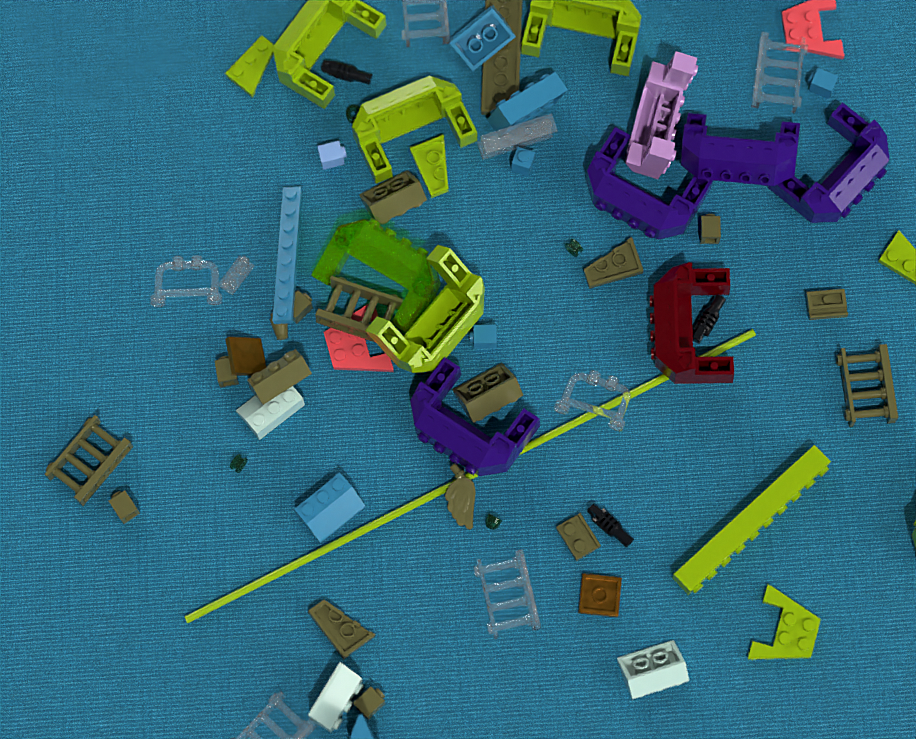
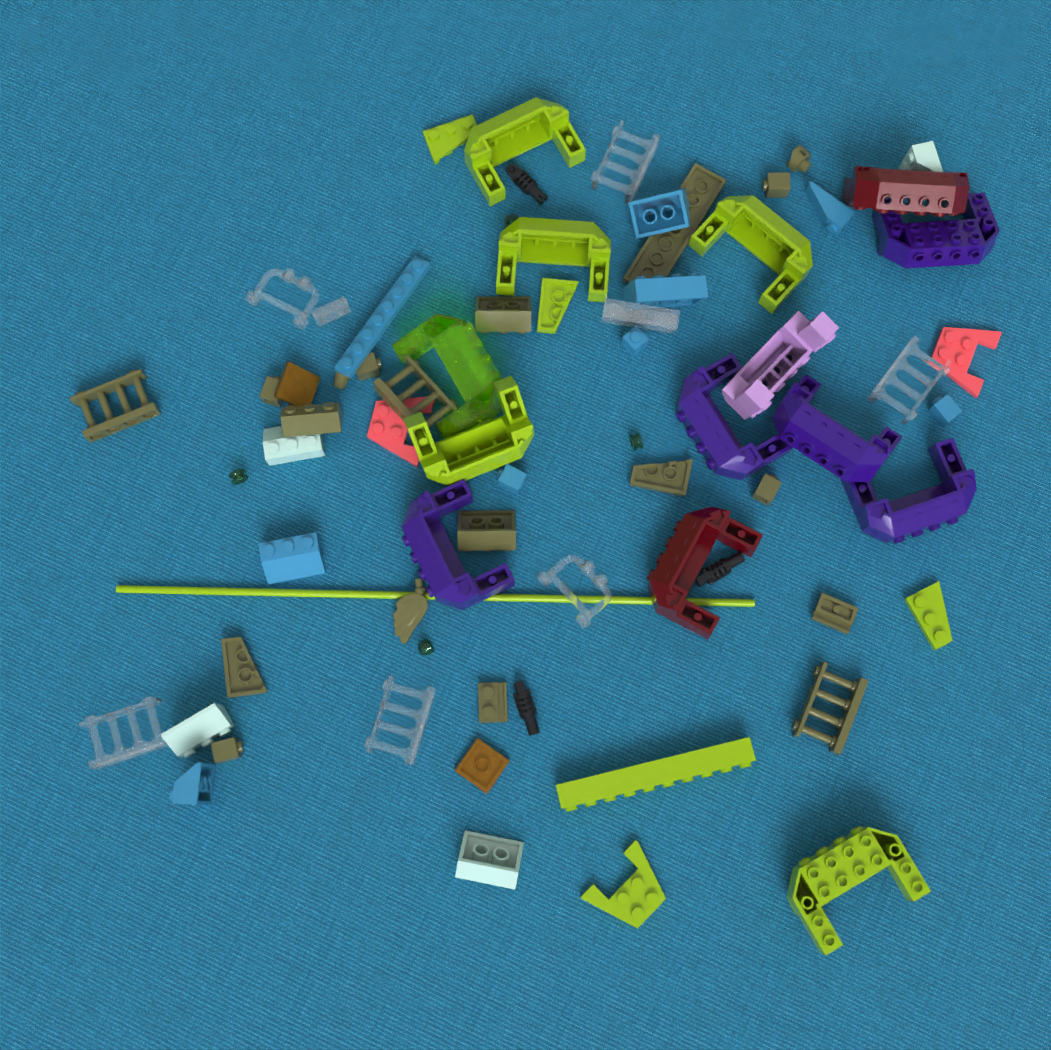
camera: 25 degrees right, 5 degrees up
(123, 506) = (120, 462): olive brick -> none
(331, 155) = (472, 249): light blue brick -> none

